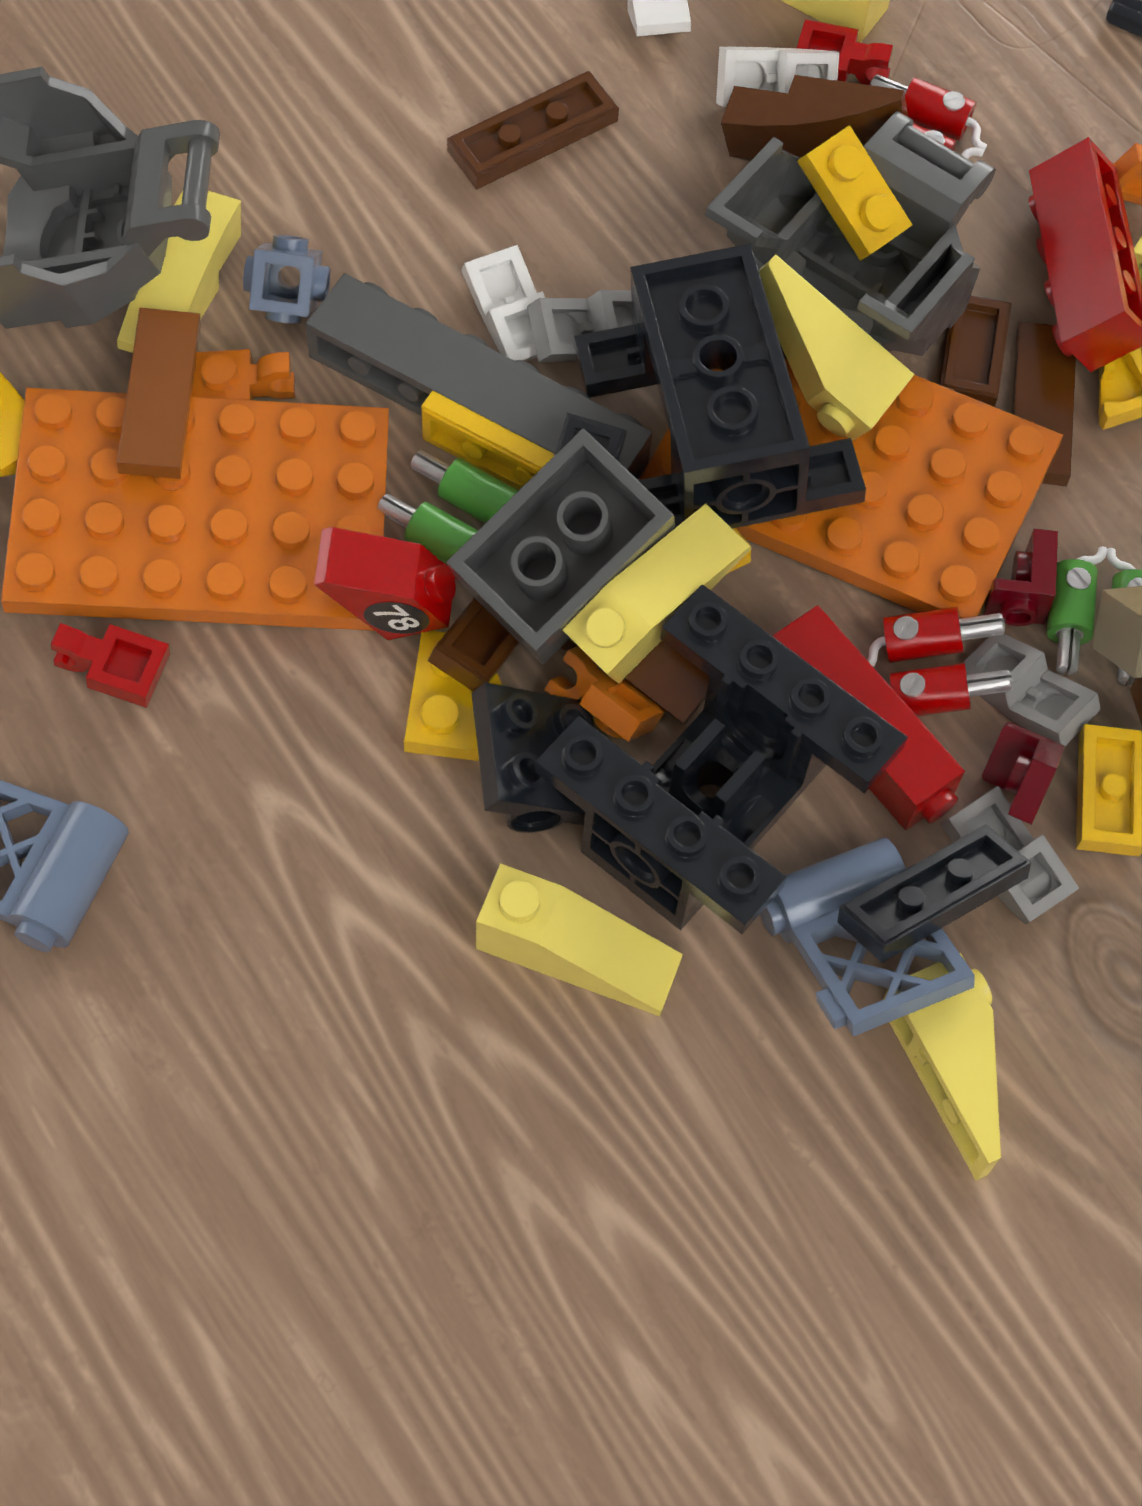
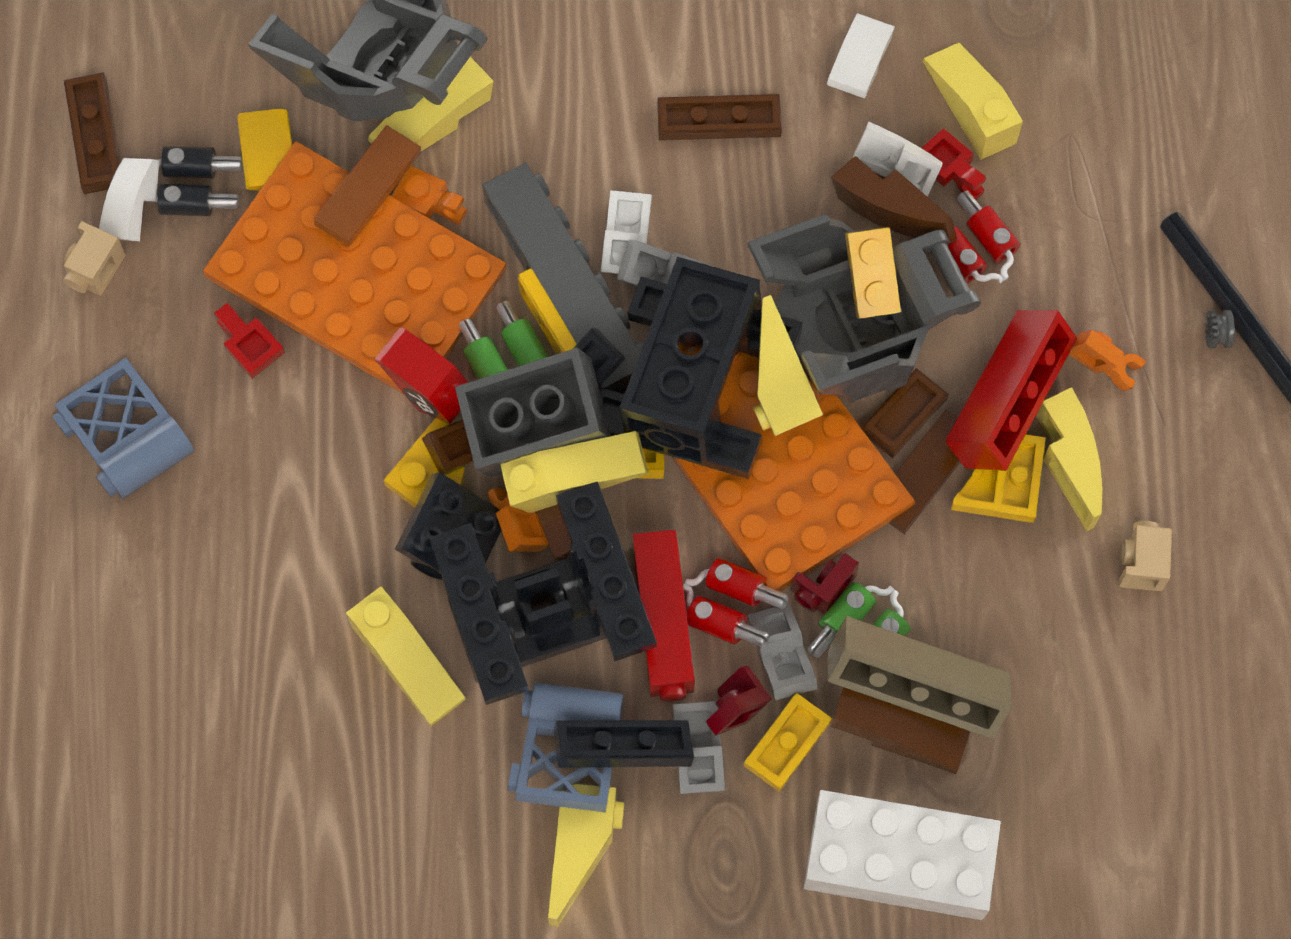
camera: 35 degrees right, 5 degrees up
(269, 291) = (491, 147): sand blue brick -> none

